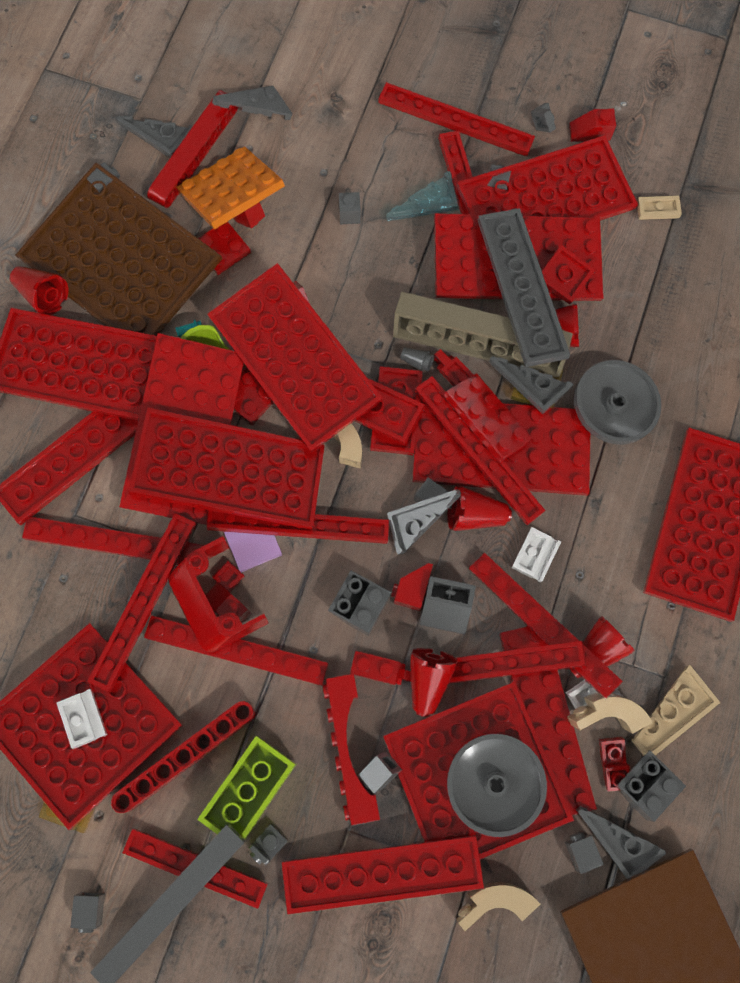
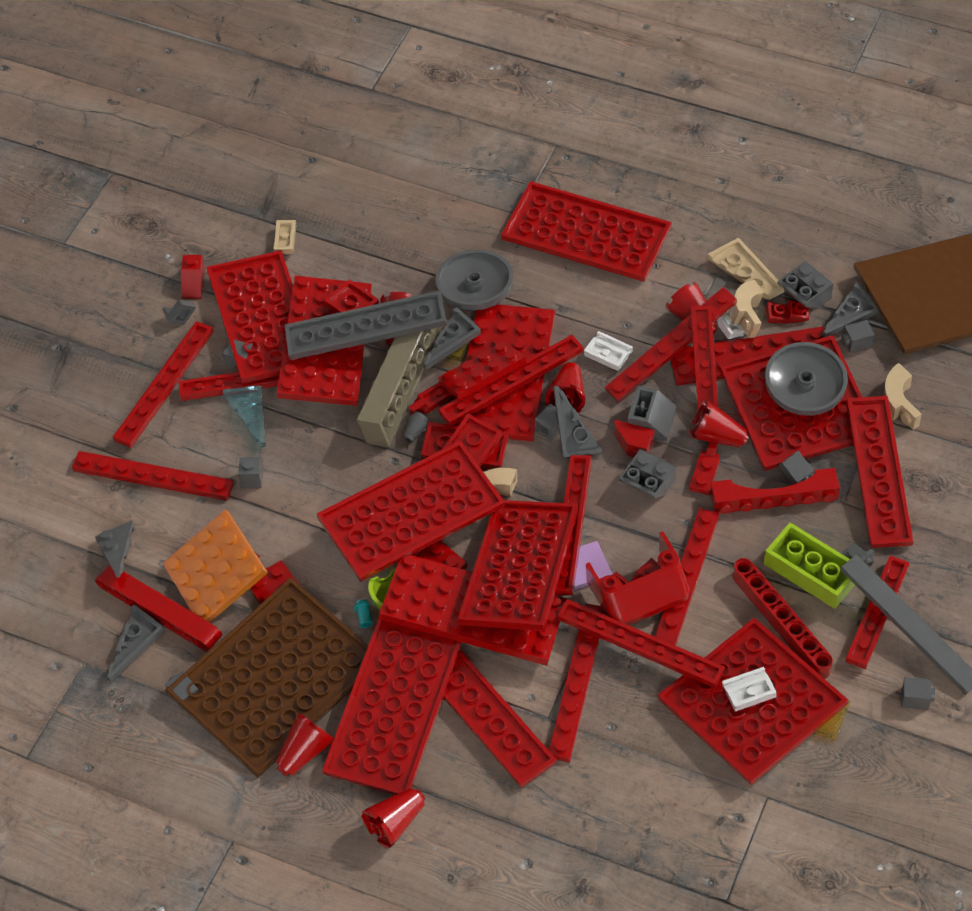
camera: 80 degrees left, 20 degrees down
(347, 126) = (153, 475): none -> red plate

